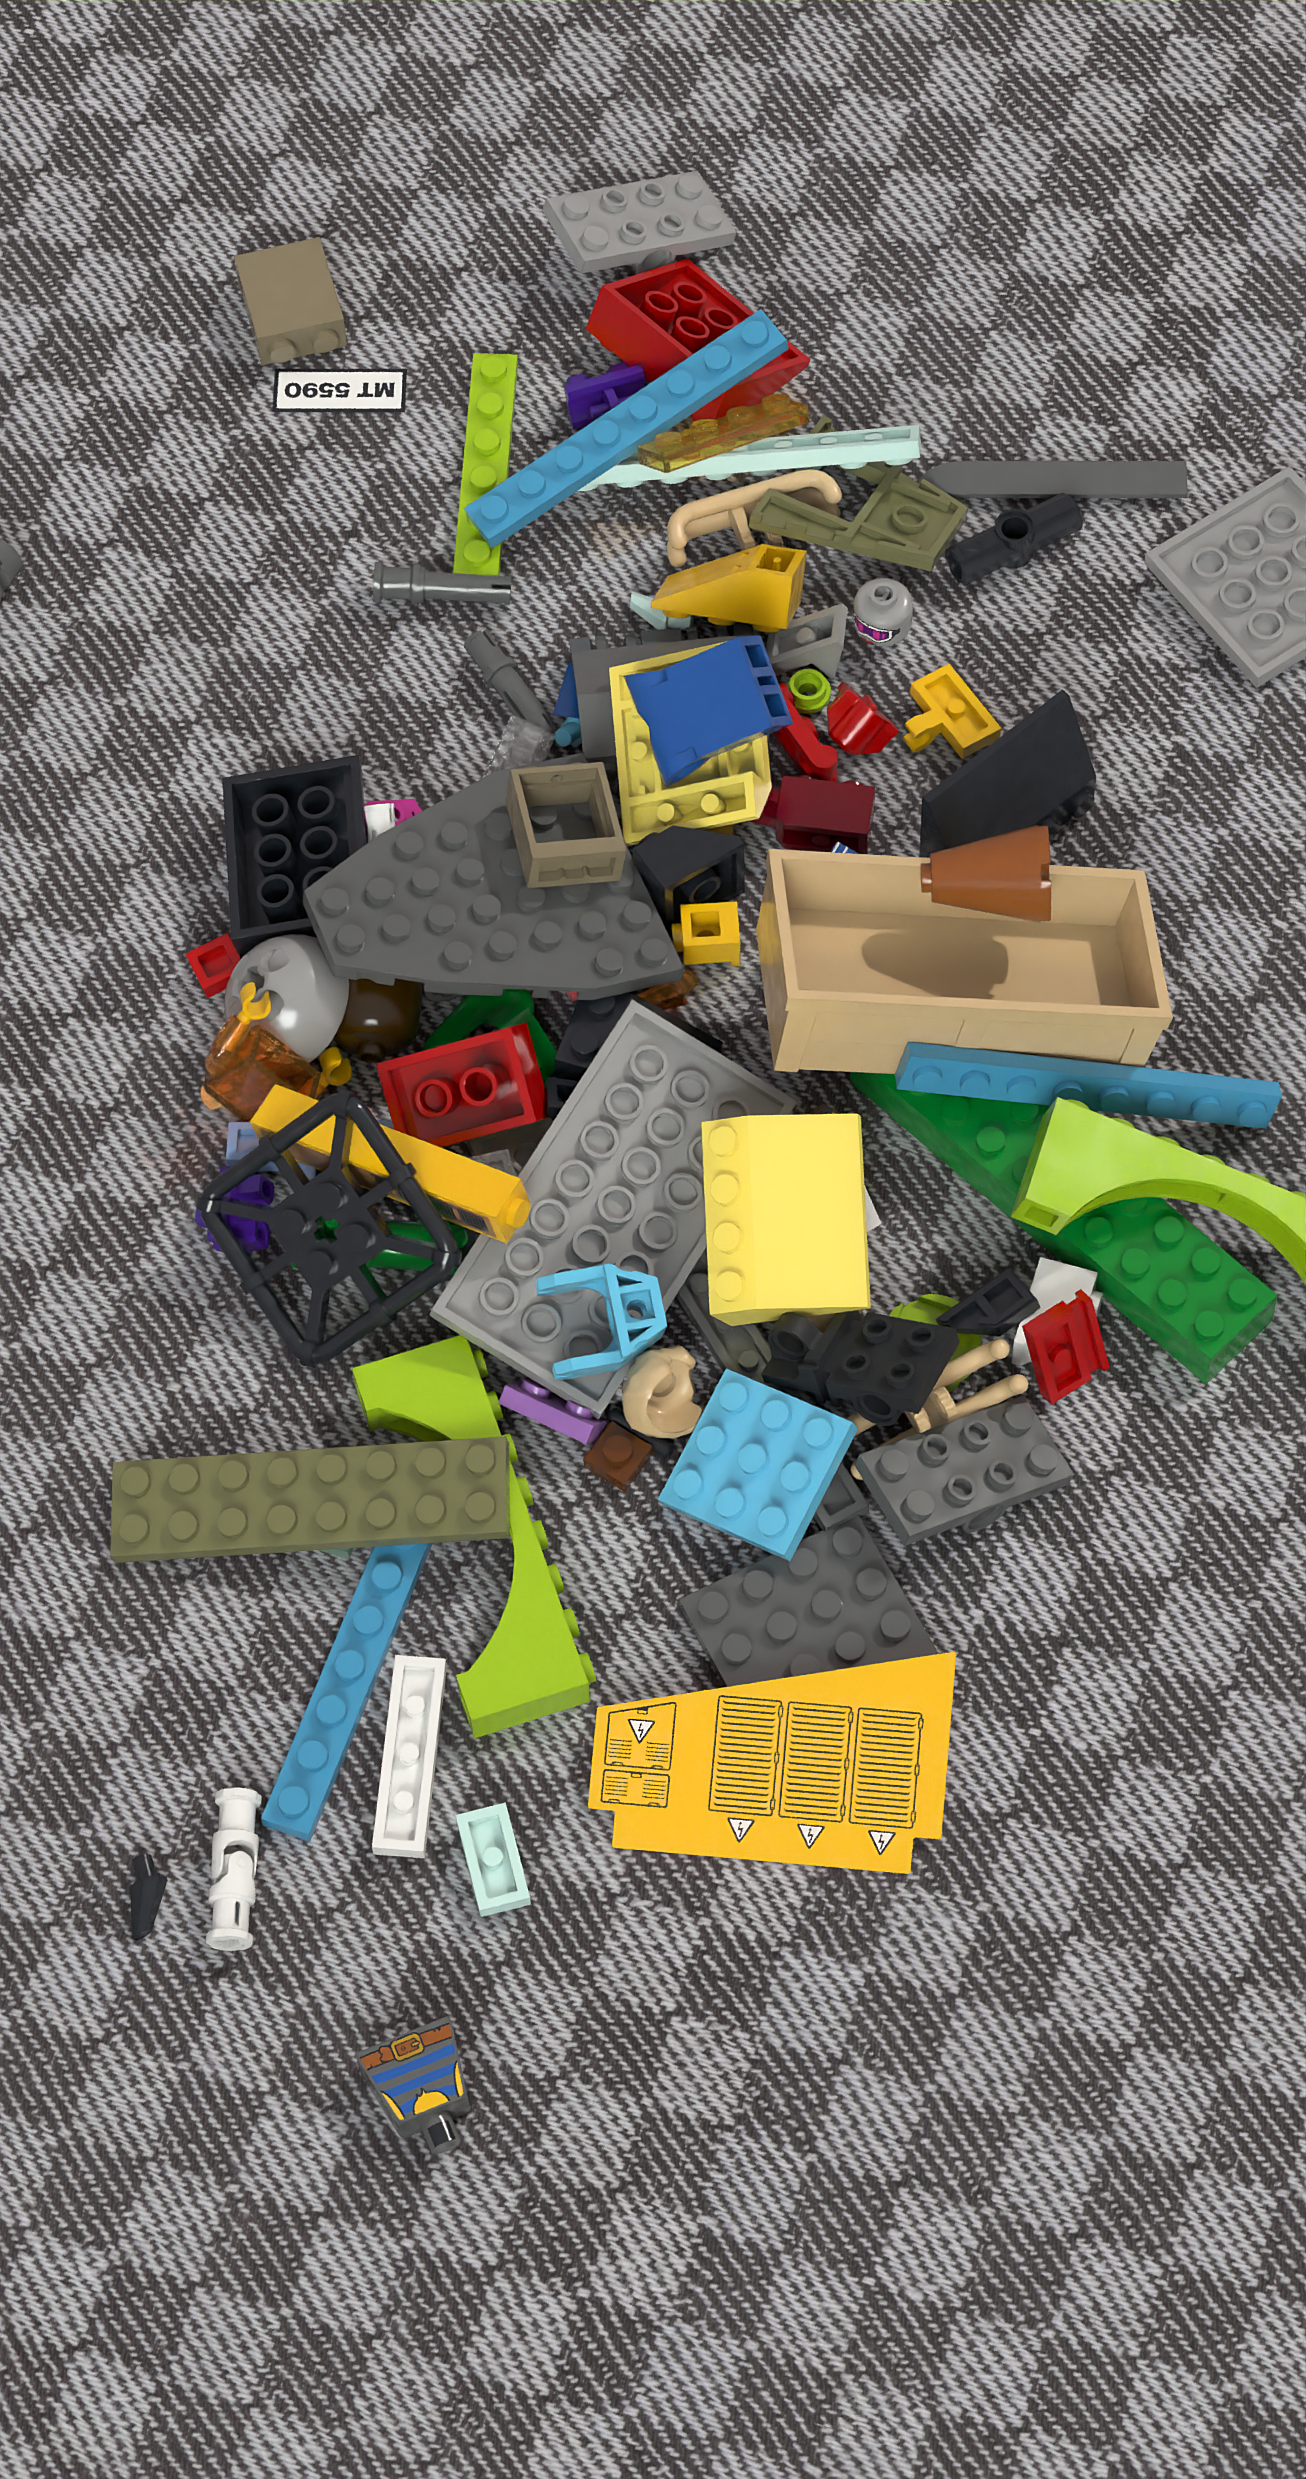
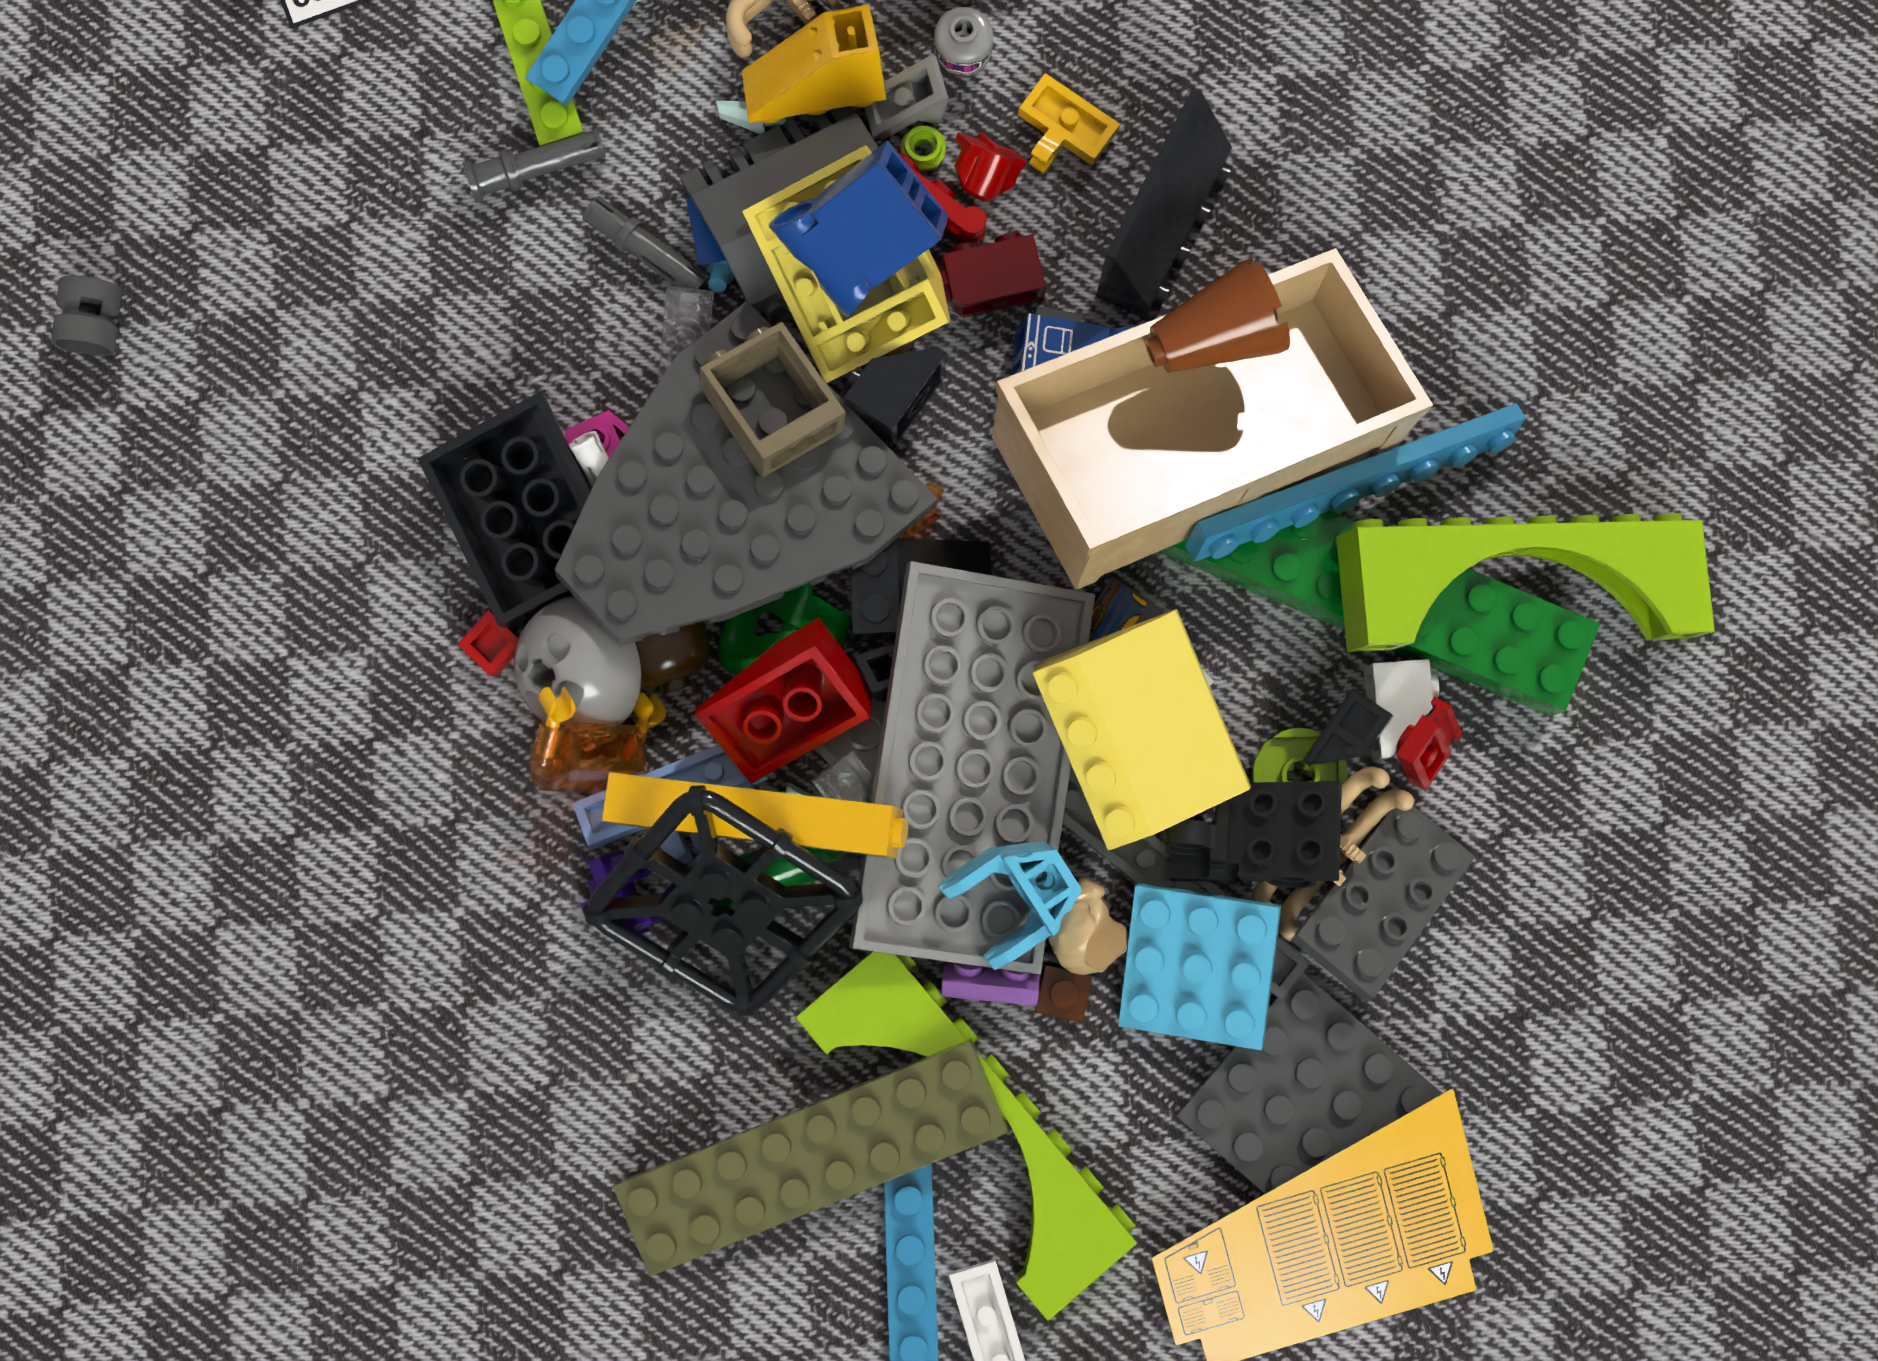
camera: 25 degrees left, 20 degrees up
(708, 933) = (943, 425): yellow brick -> none

